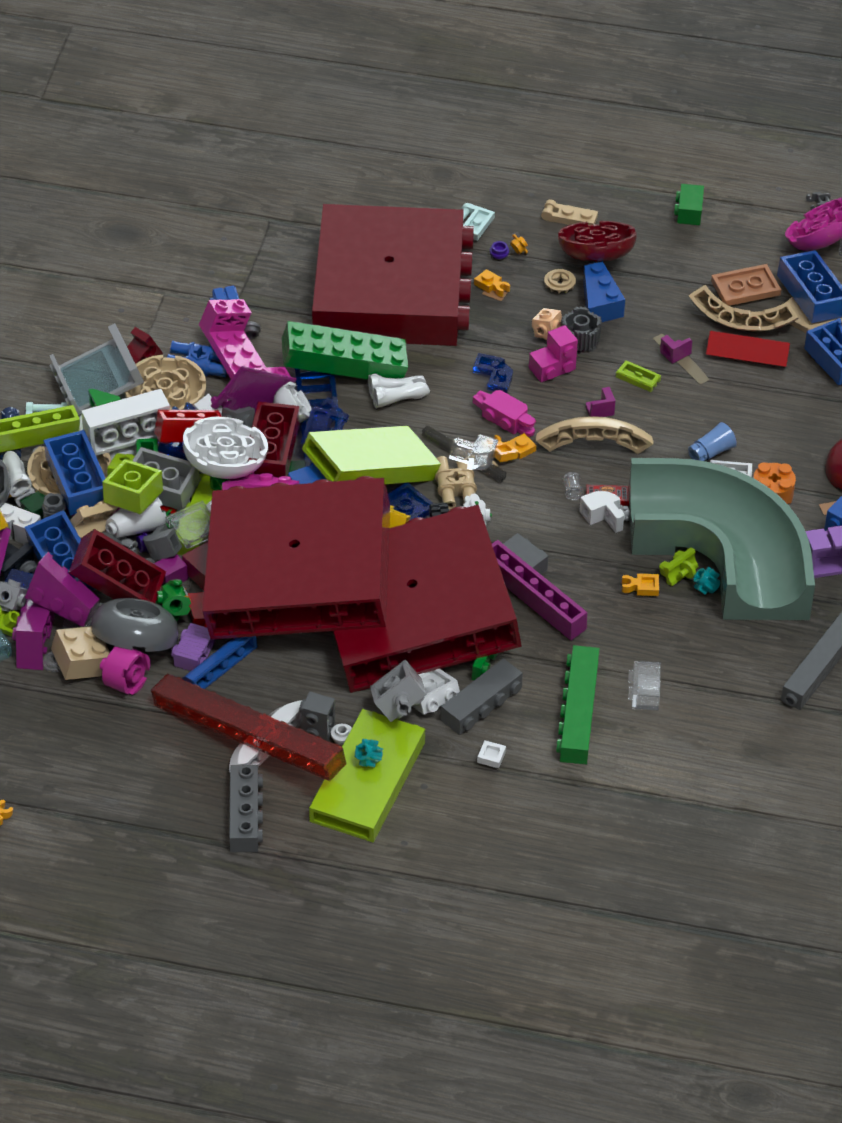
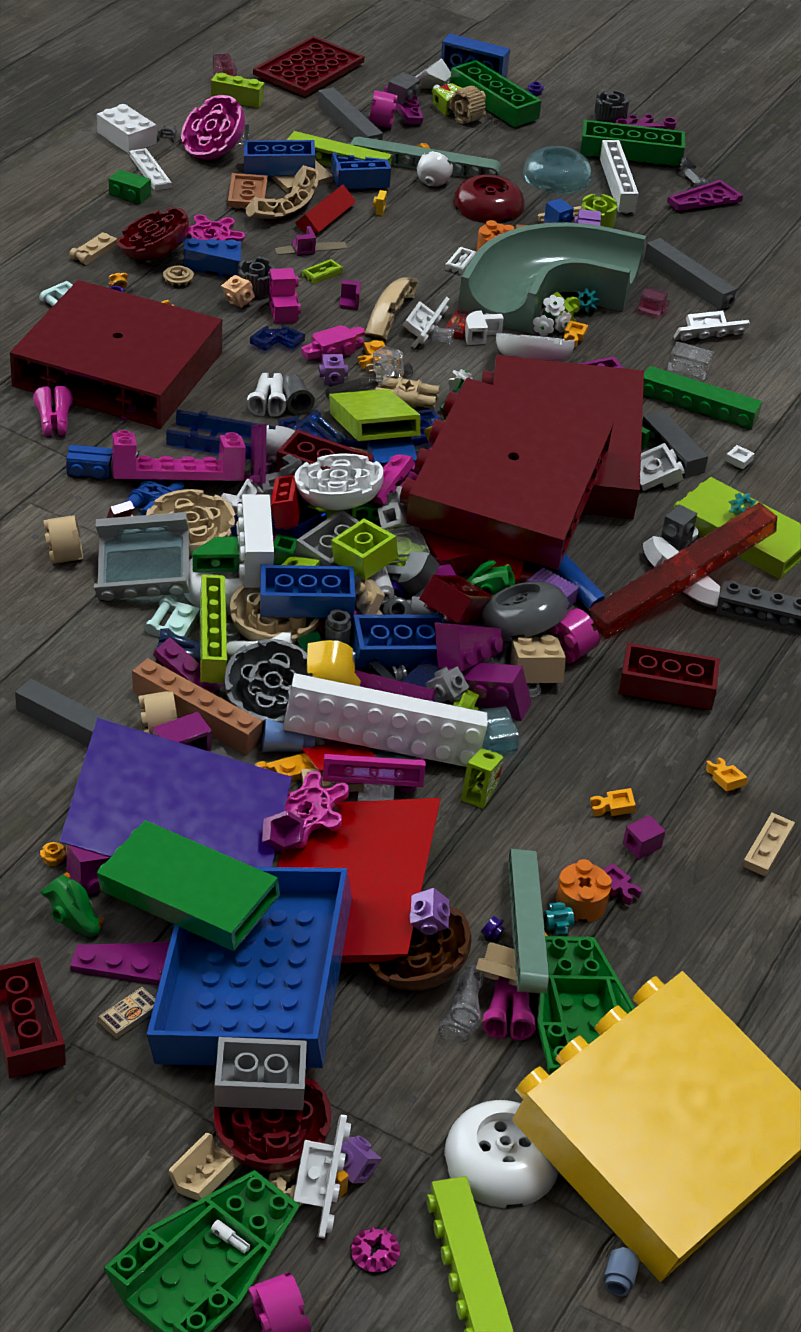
camera: 75 degrees left, 5 degrees down
(100, 315) = (63, 539): none -> tan brick
(100, 749) = (669, 676): none -> dark red brick
(294, 263) = (53, 420): none -> dark pink piece
(343, 351) = (217, 399): green brick -> none
(398, 691) = (677, 470): light grey brick -> none
(403, 407) = (298, 396): none -> dark grey plant
(455, 420) = (333, 369): none -> medium lavender brick
(574, 549) = (534, 347): none -> white brick
(589, 464) = (422, 321): none -> white bracket
(644, 272) = (219, 230): none -> dark pink plate
(652, 550) = (553, 307): none -> white plant
(713, 443) = (430, 252): medium blue plant -> none
(728, 688) = (709, 324): none -> white bracket
(742, 210) = (150, 169): none -> white tile
(744, 635) = (653, 301): none -> clear pink brick
(792, 384) = (380, 202): none -> yellow plate
(796, 170) = (126, 128): none -> white brick

